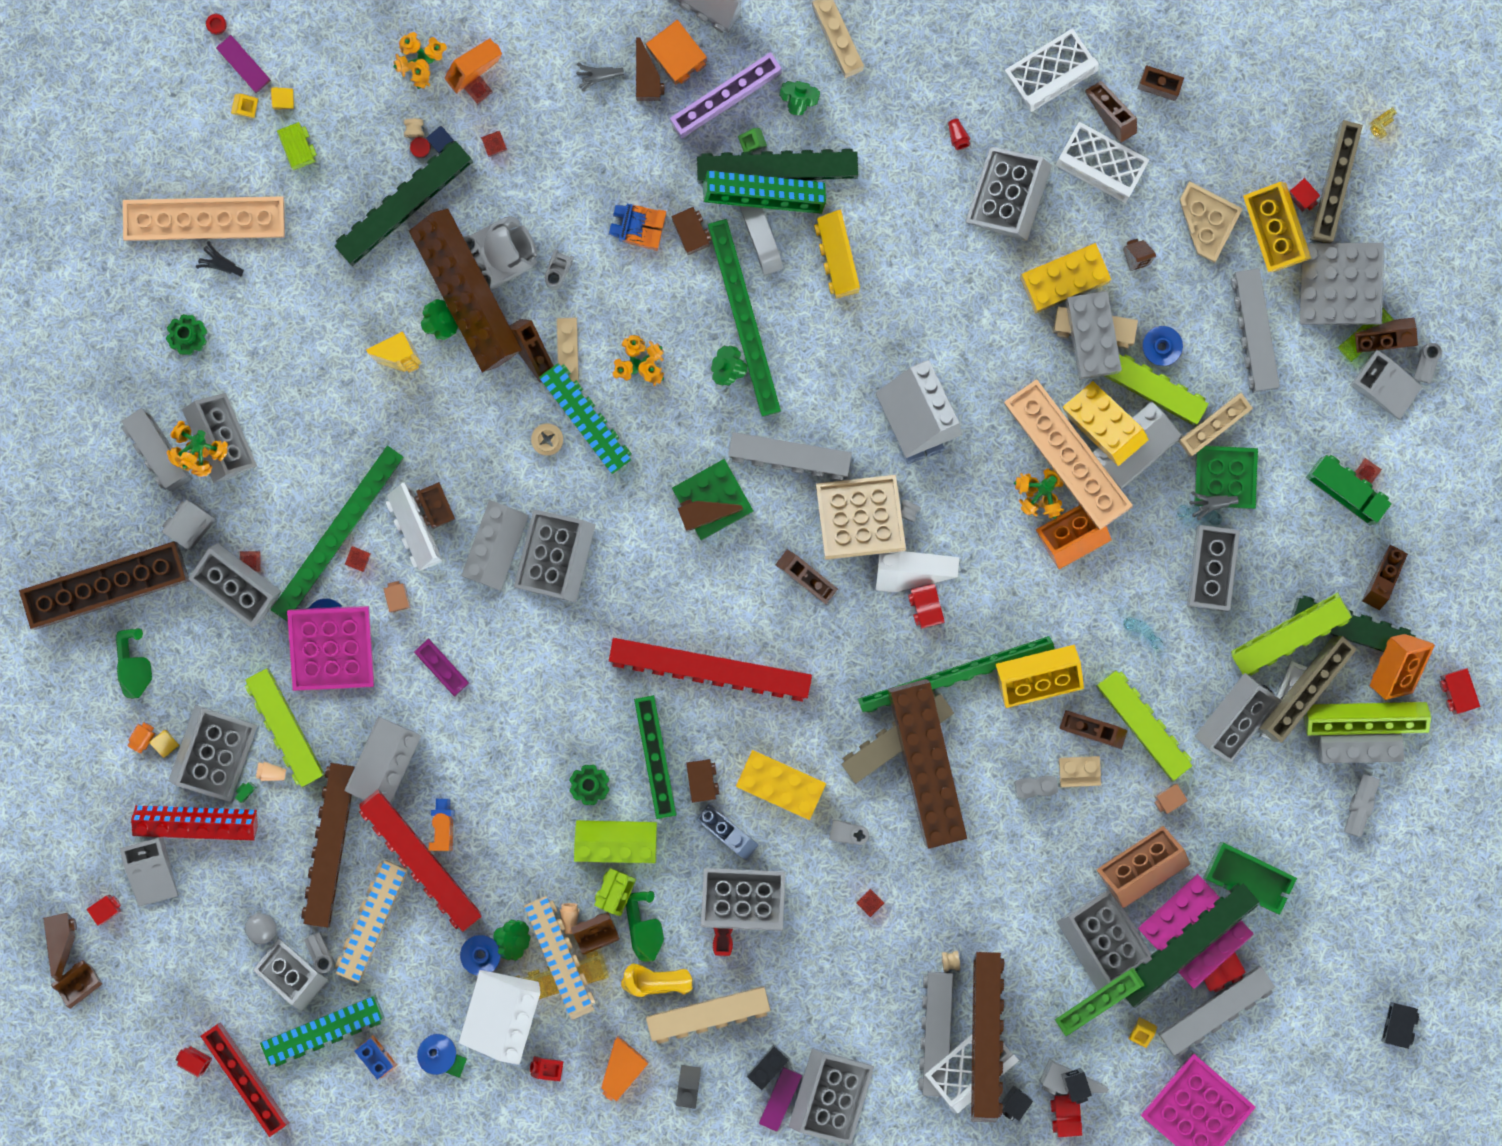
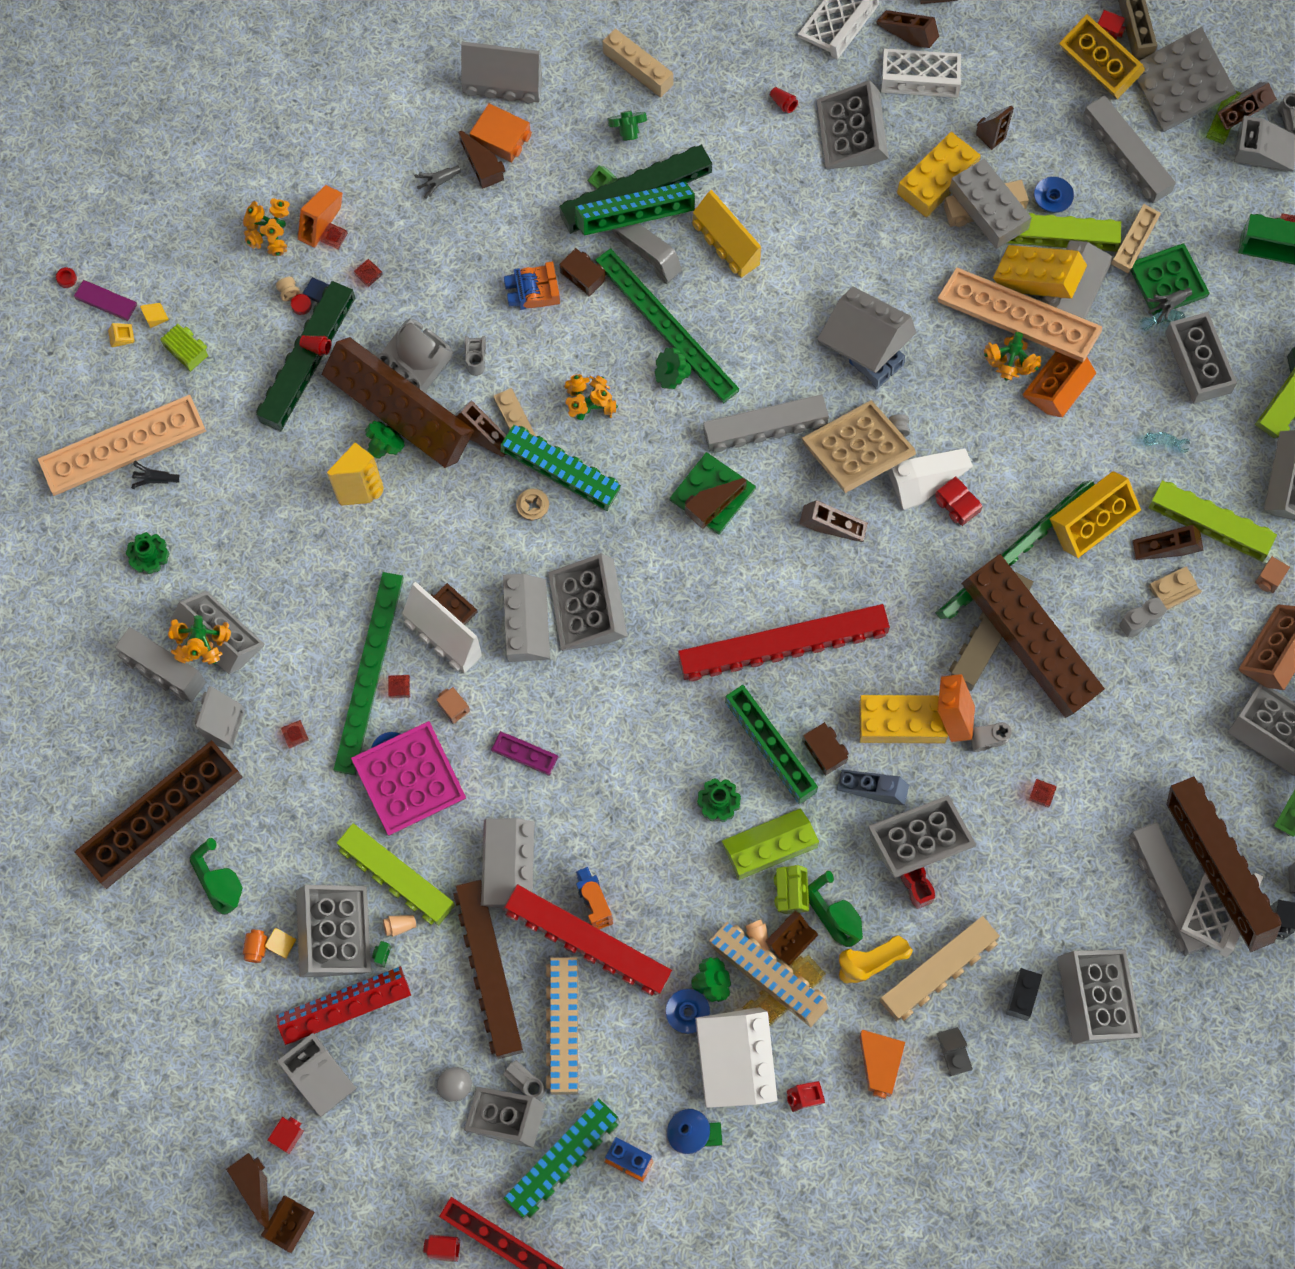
camera: 25 degrees left, 15 degrees down
(234, 585) = (289, 757): light grey brick -> none
(415, 203) = (318, 344): none -> red cone
(726, 95) = (561, 148): lavender brick -> none
(780, 1099) = (1050, 1023): magenta tile -> none
(827, 800) = (956, 708): none -> orange brick
(950, 961) = (1147, 813): tan wheel -> none
(1208, 219) = (1038, 79): tan plate -> none

